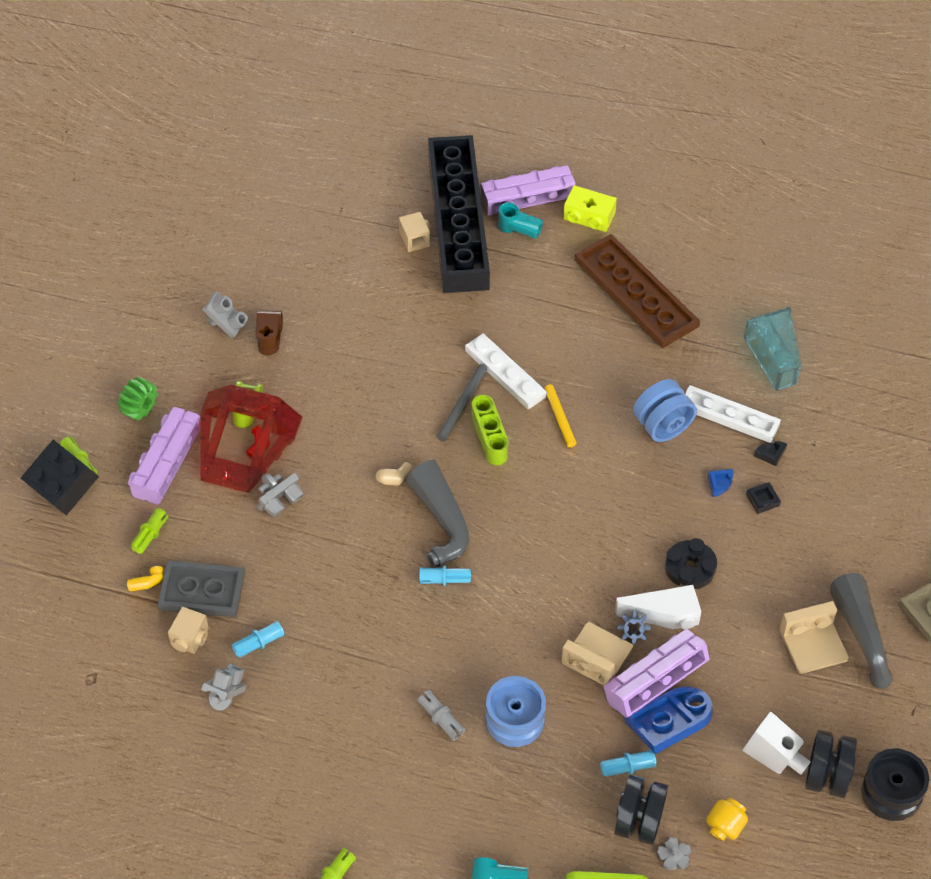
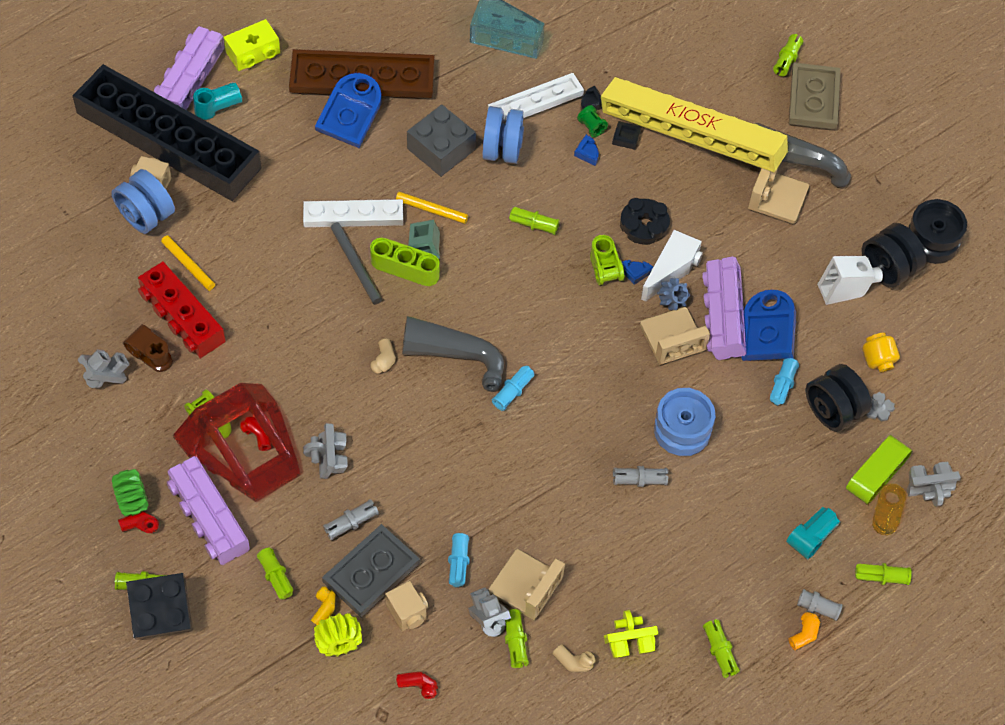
camera: 55 degrees left, 5 degrees up
(125, 601) = (338, 634): none -> neon yellow gear
(126, 423) = (141, 521): none -> red arm
(134, 681) = (420, 680): none -> red arm
(222, 723) = (516, 639): none -> lime pin
(233, 547) = (350, 519): none -> light grey pin
(233, 776) = (575, 663): none -> tan arm
(275, 699) = (527, 583): none -> tan bracket
(276, 795) = (644, 636): none -> neon yellow hips
(317, 326) = (181, 310): none -> red brick
(364, 304) = (190, 265): none -> yellow bar
(378, 238) = (143, 201): none -> medium blue wheel
(521, 428) = (425, 237): none -> sand green brick
(593, 304) = (350, 111): none -> blue tile
(614, 489) = (534, 220): none -> lime axle
(618, 563) = (605, 264): none -> lime piece
(622, 376) = (441, 140): none -> dark grey brick
(635, 585) = (636, 271): none -> blue tile
(749, 464) = (592, 121): none -> green bush
(812, 533) = (695, 124): none -> light yellow brick

